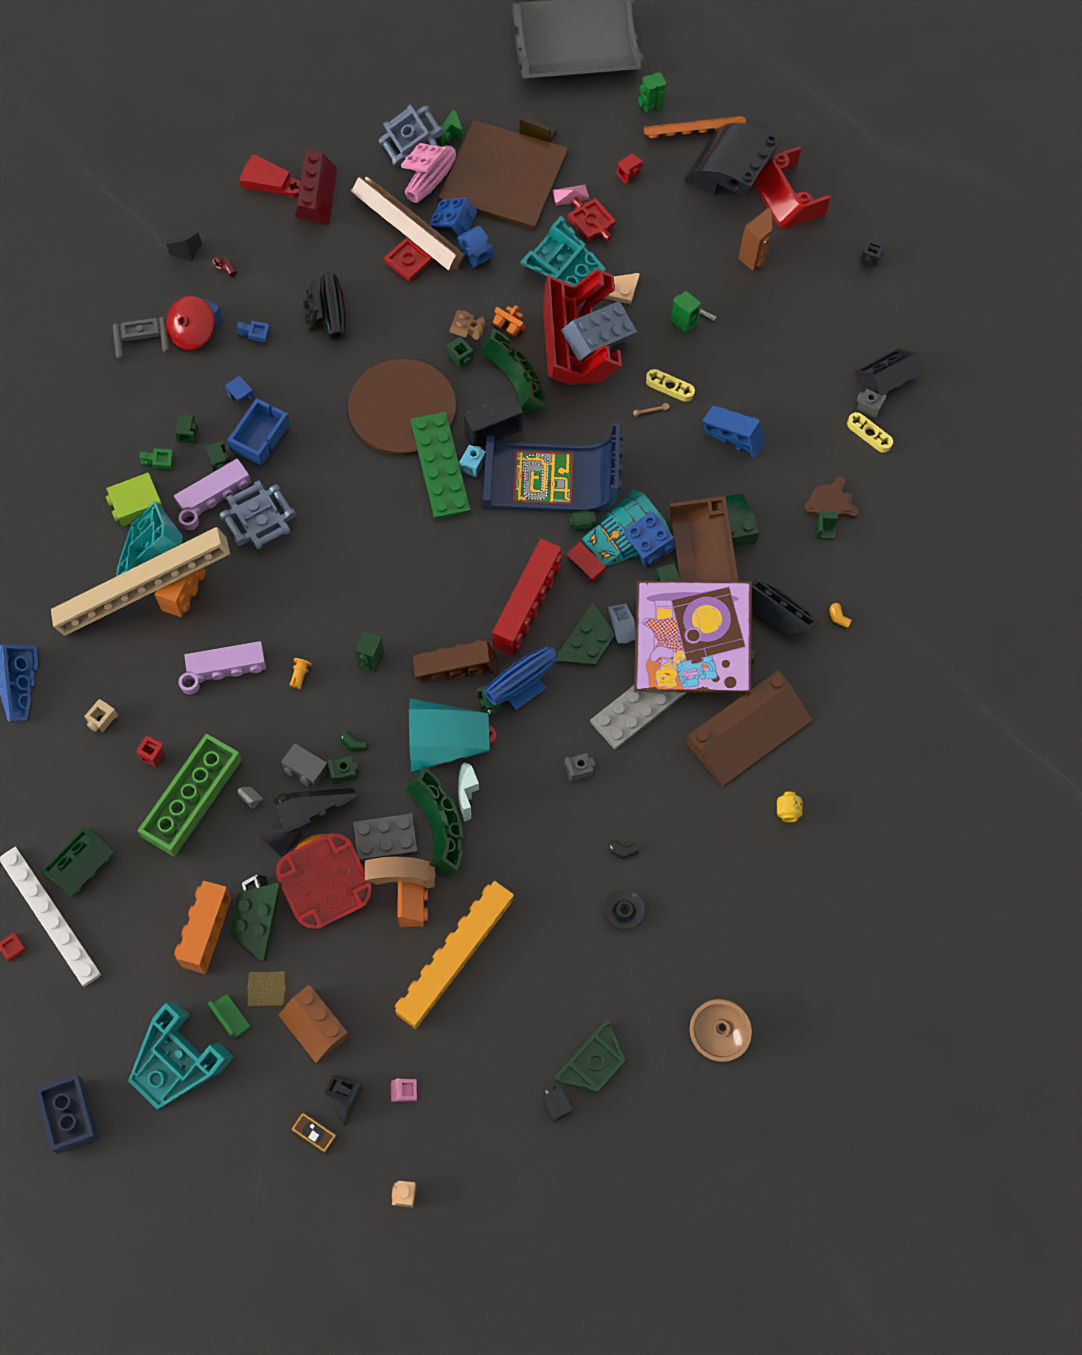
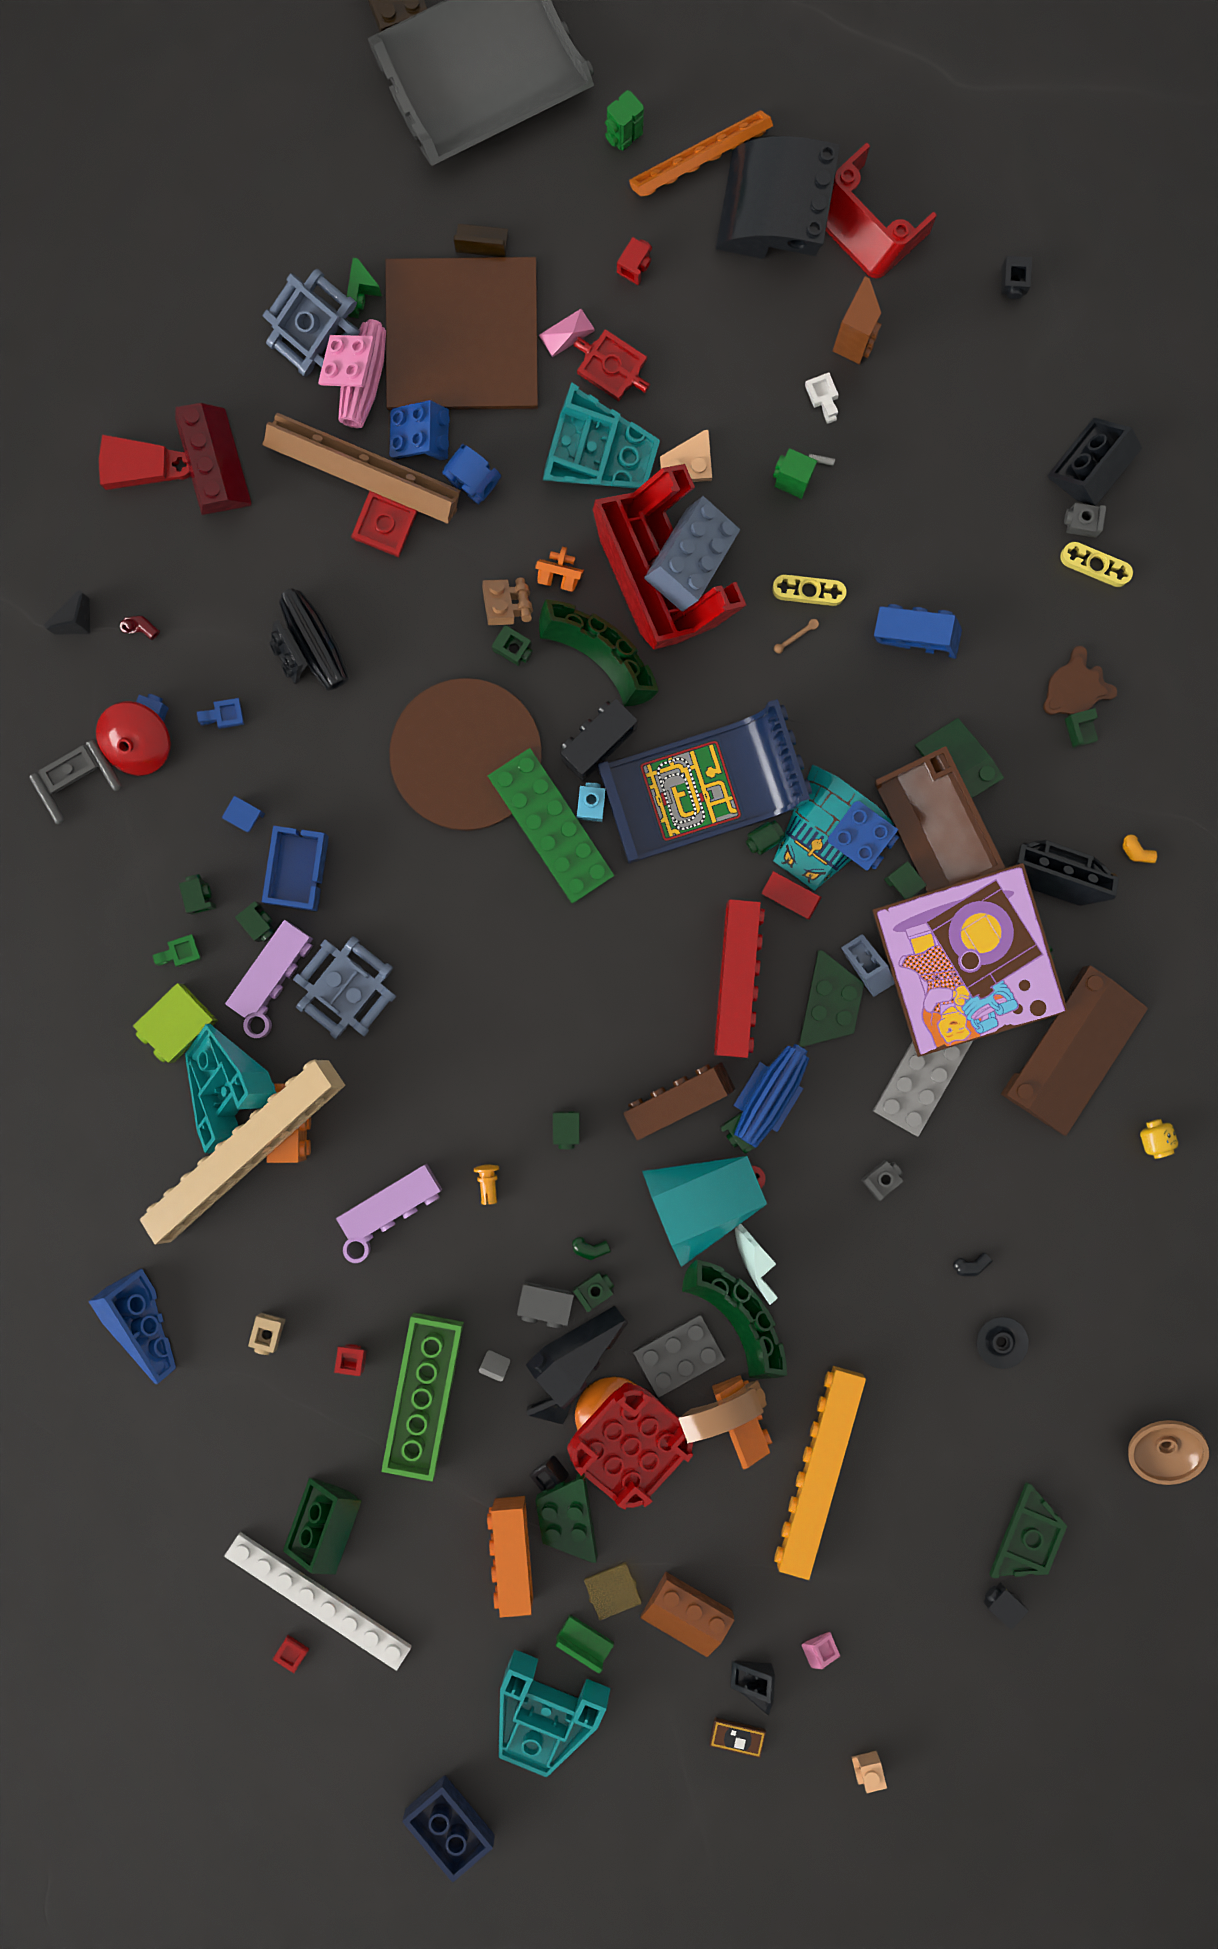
camera: 15 degrees left, 20 degrees up
(722, 276) = (823, 392): none -> white plate

